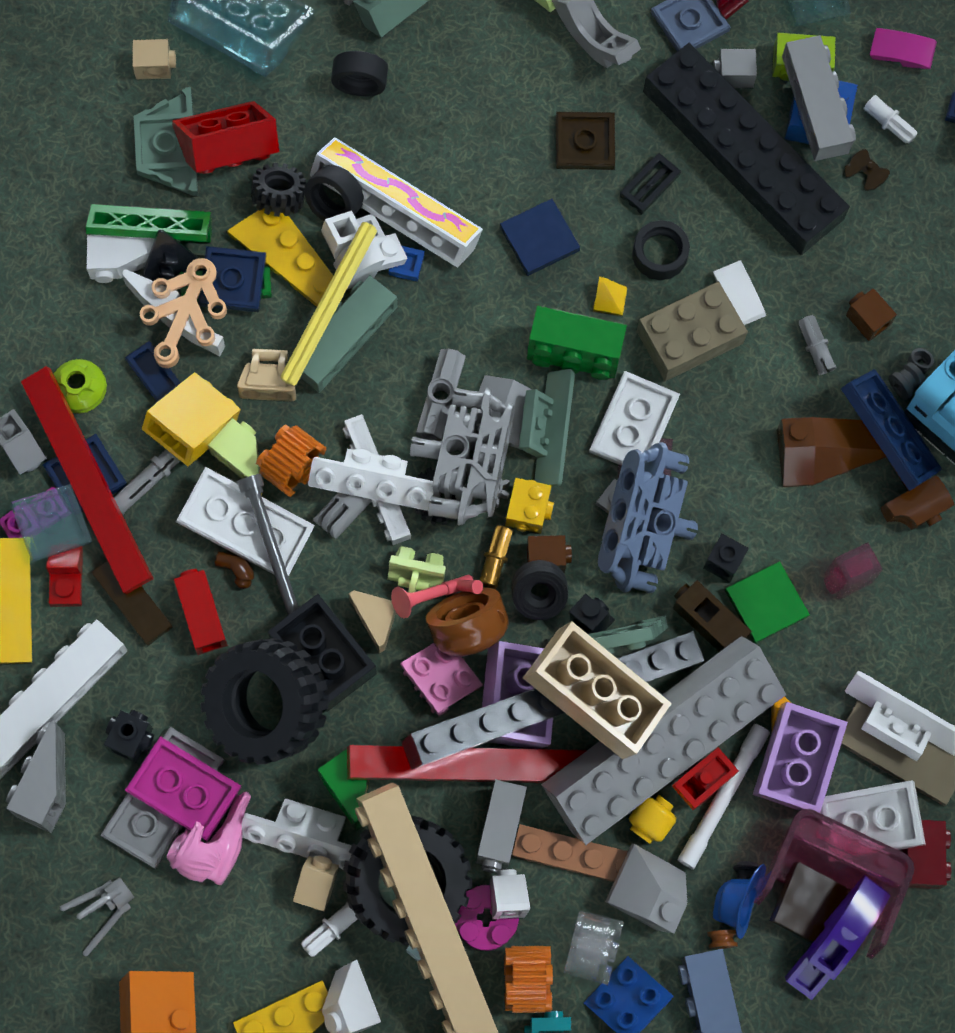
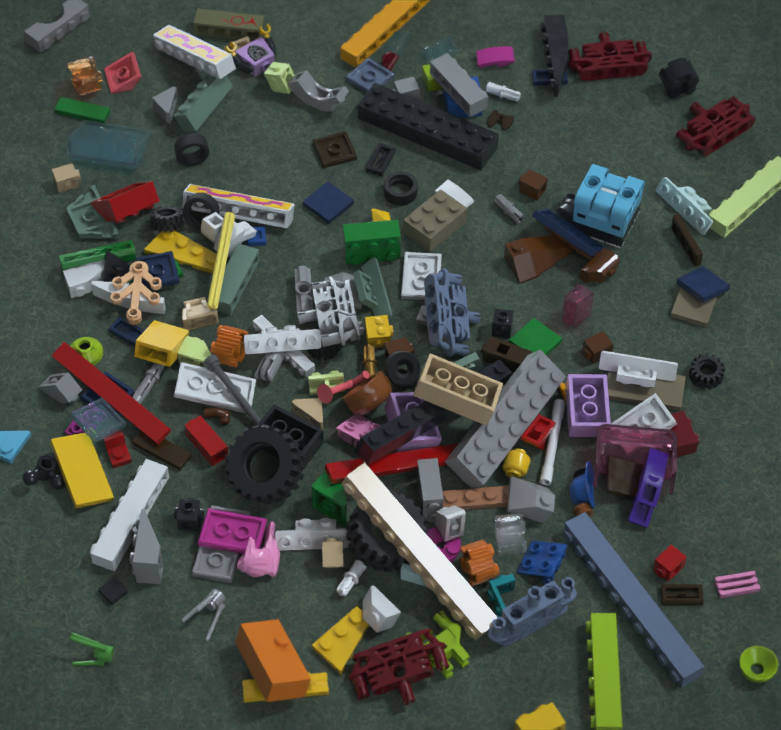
camera: 15 degrees left, 20 degrees down
(856, 652) = (595, 345): none -> reddish brown brick

